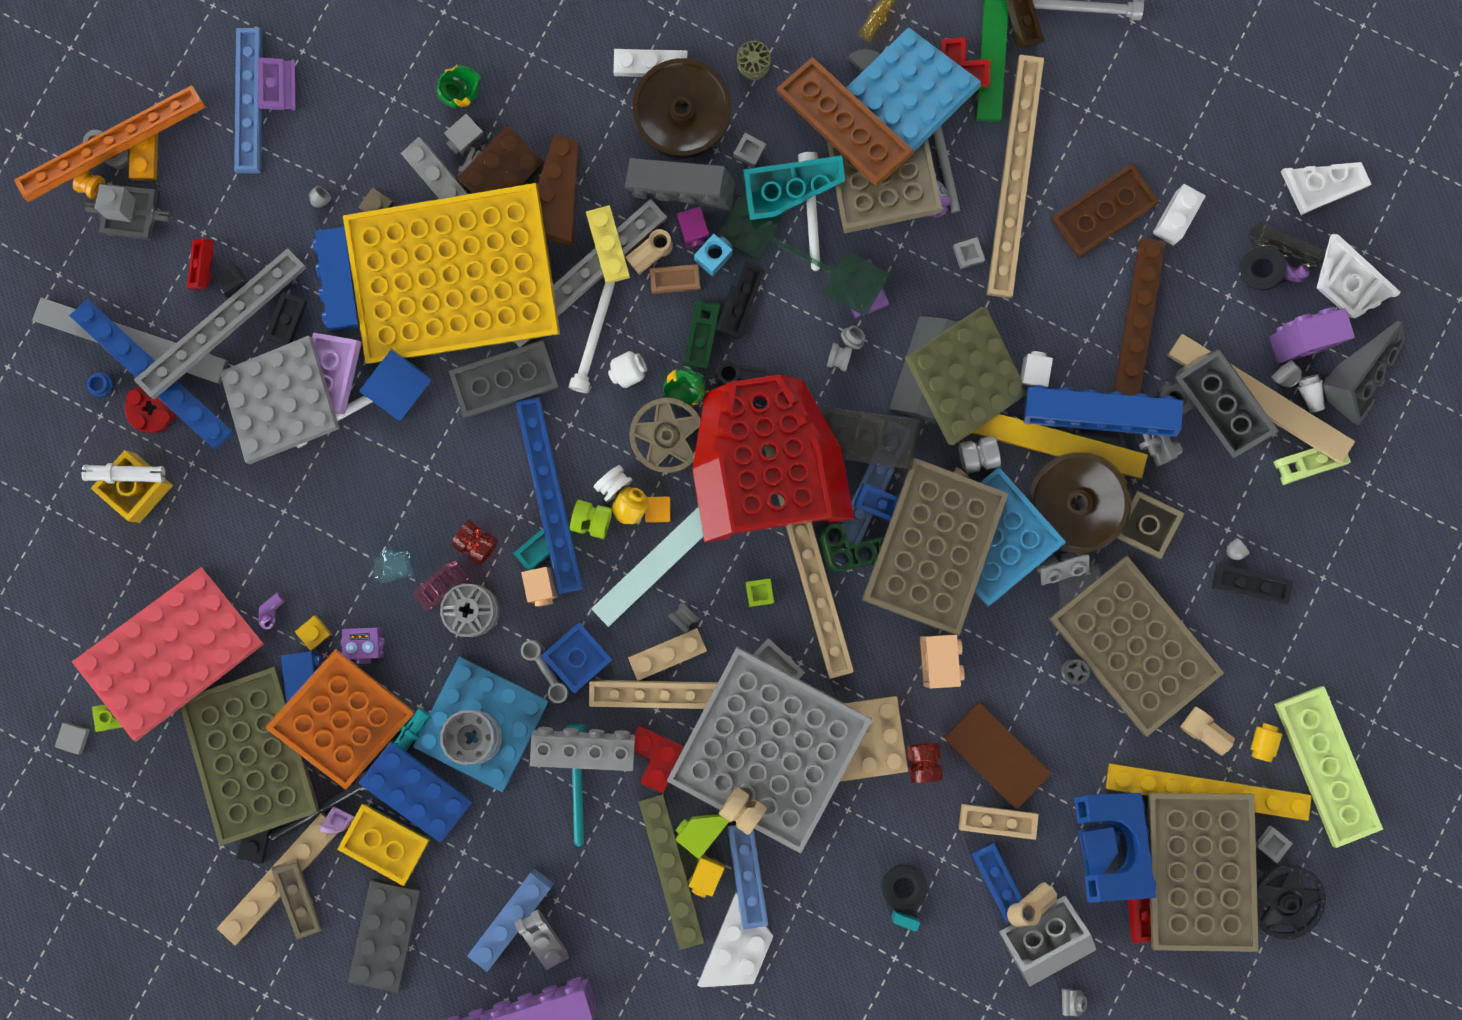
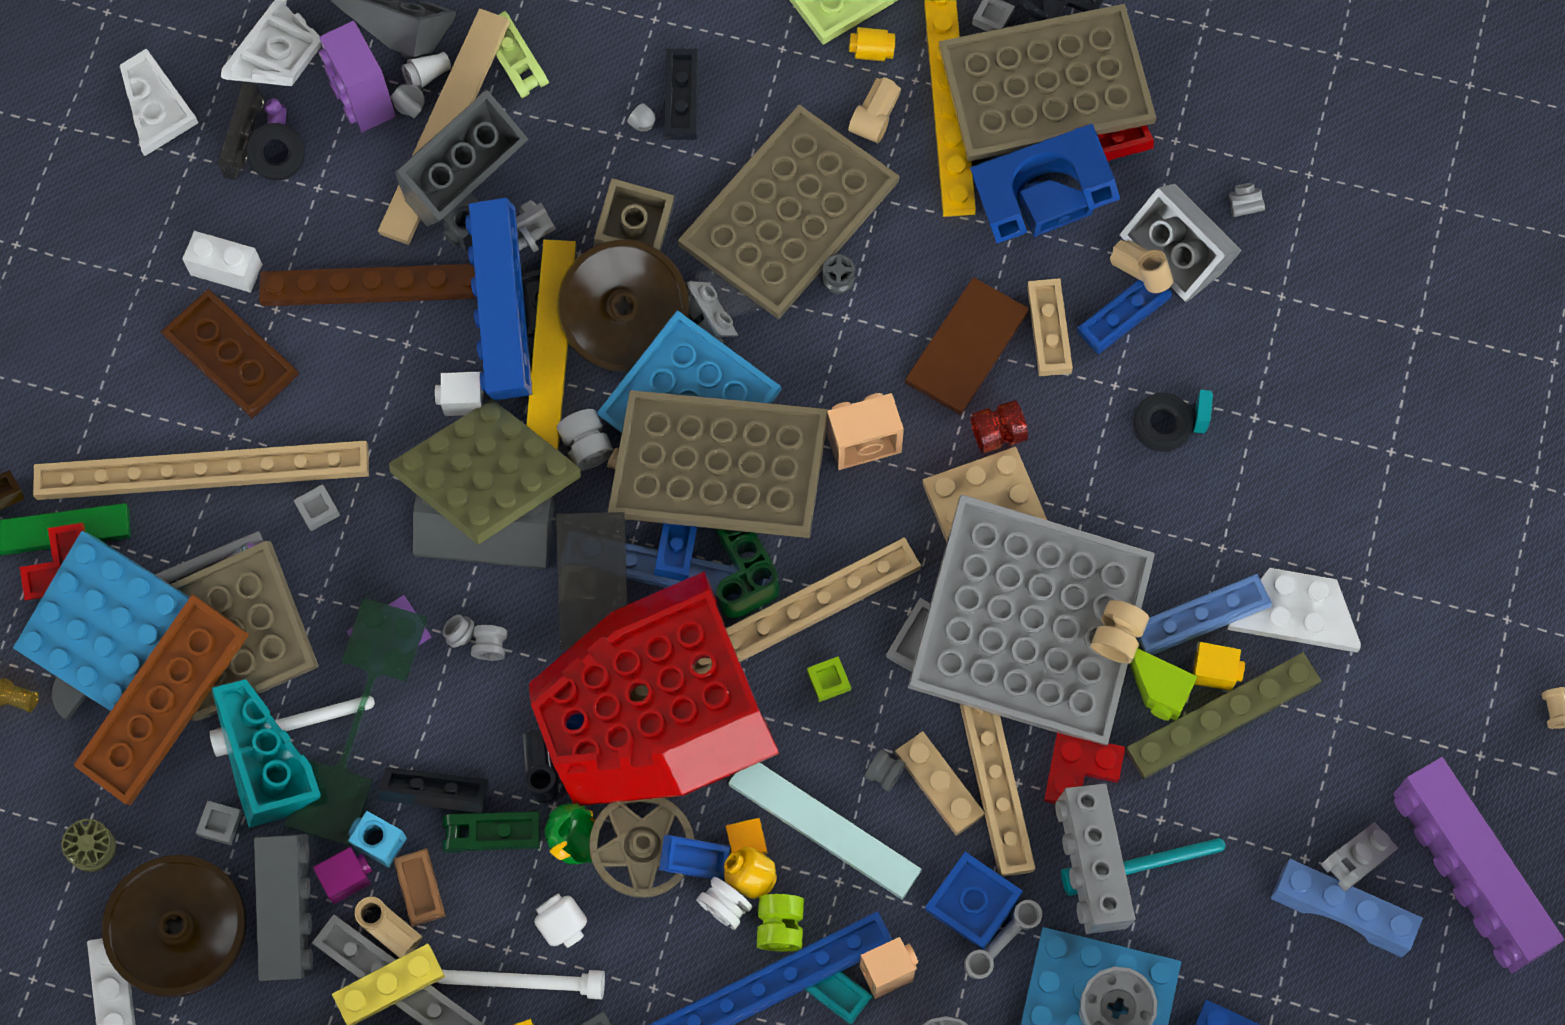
camera: 100 degrees left, 15 degrees down
(649, 469) = (693, 857): none -> blue tile

